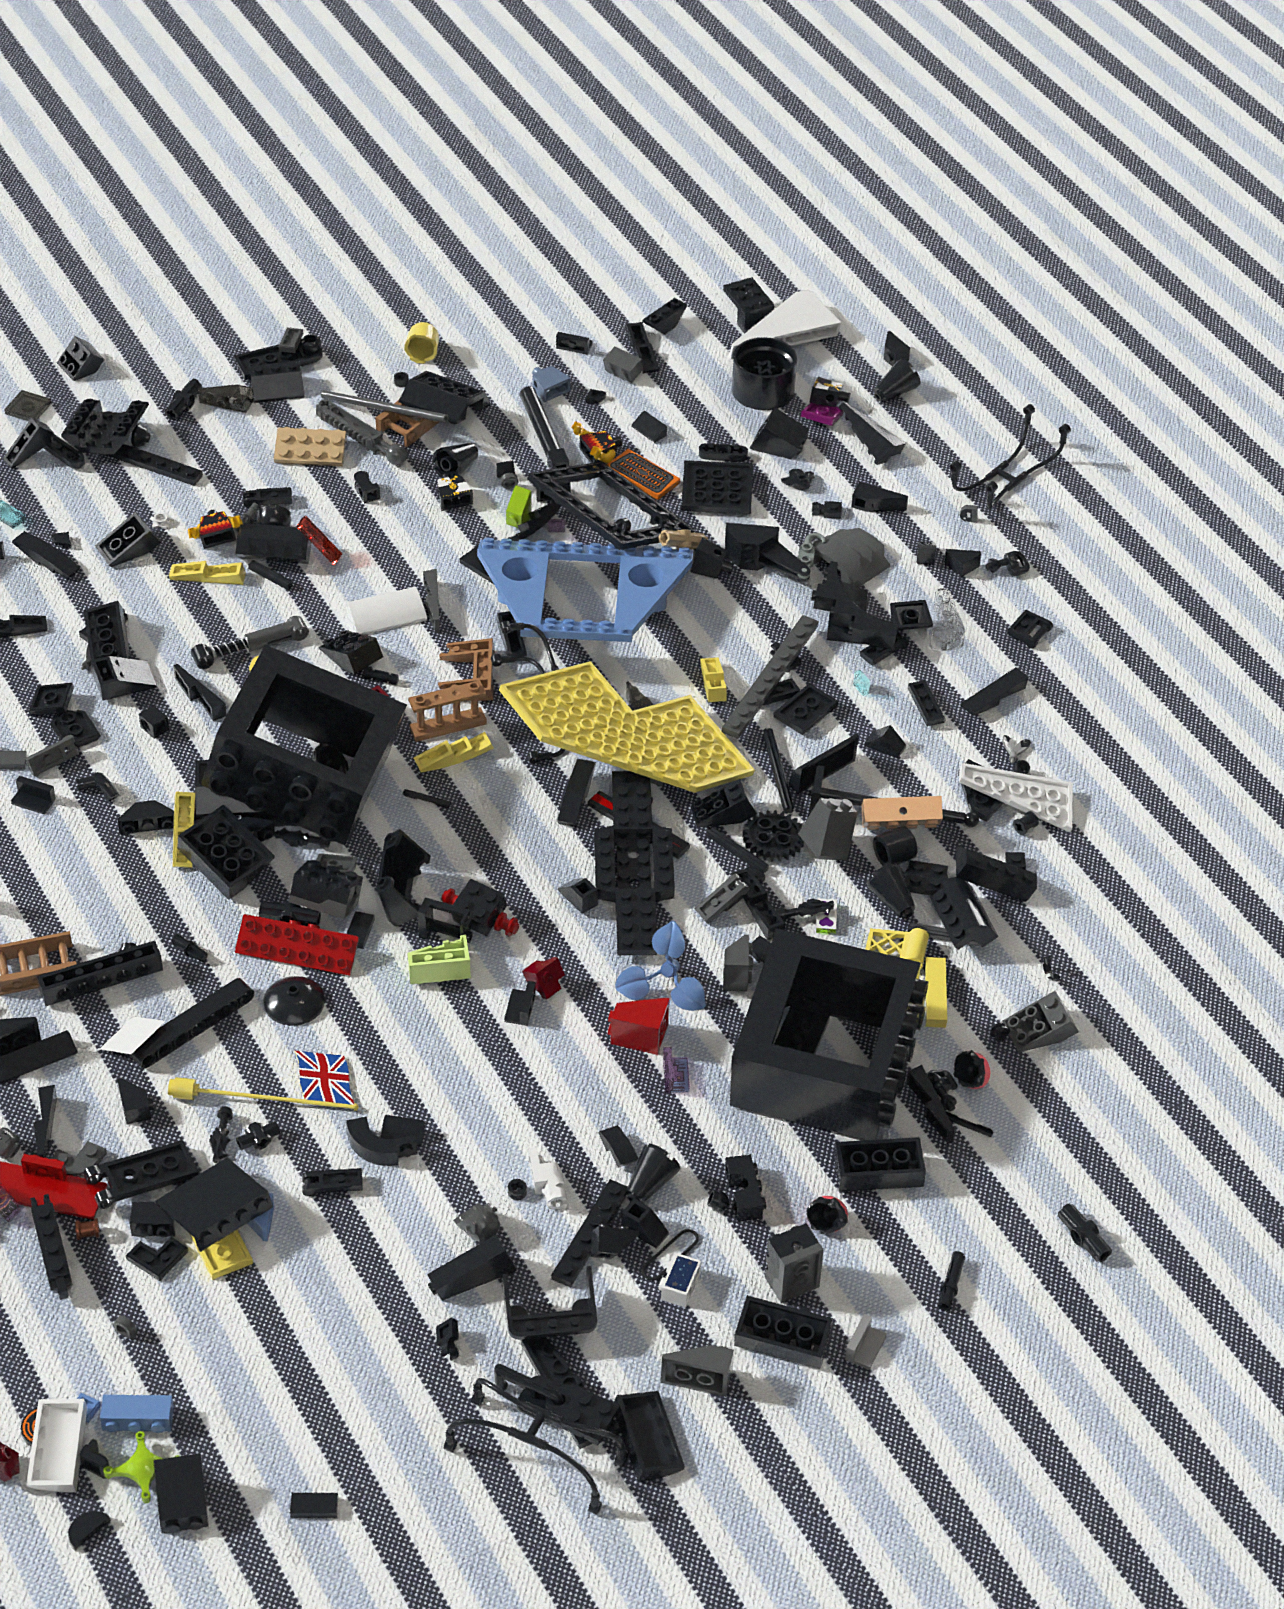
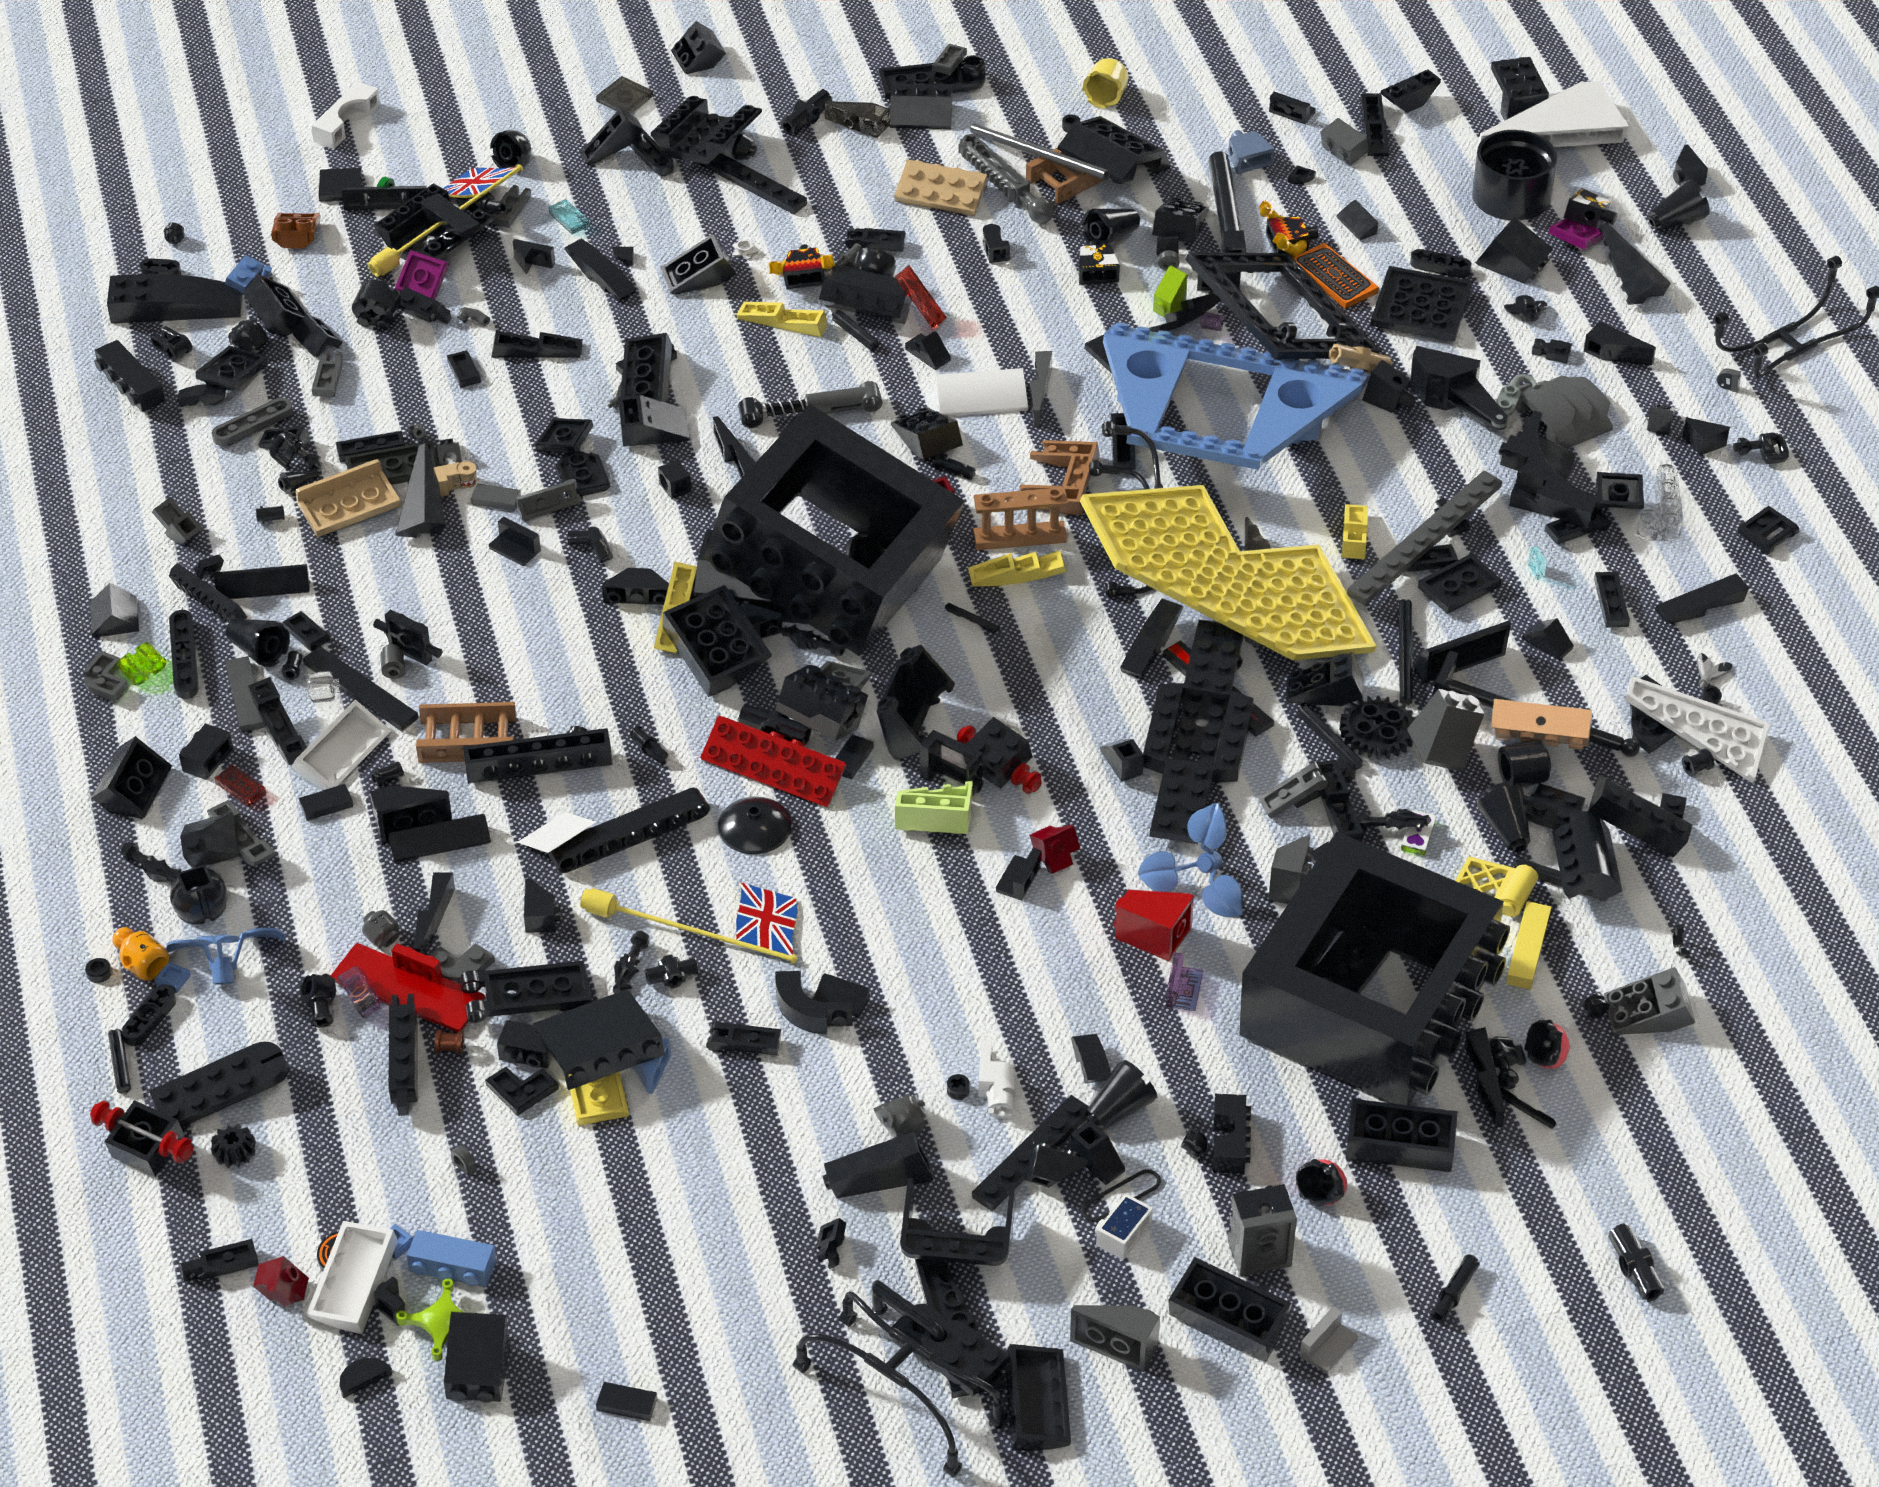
camera: 15 degrees right, 0 degrees up
(334, 582) = (929, 349): none -> black slope
(509, 446) = (1179, 219): none -> black slope

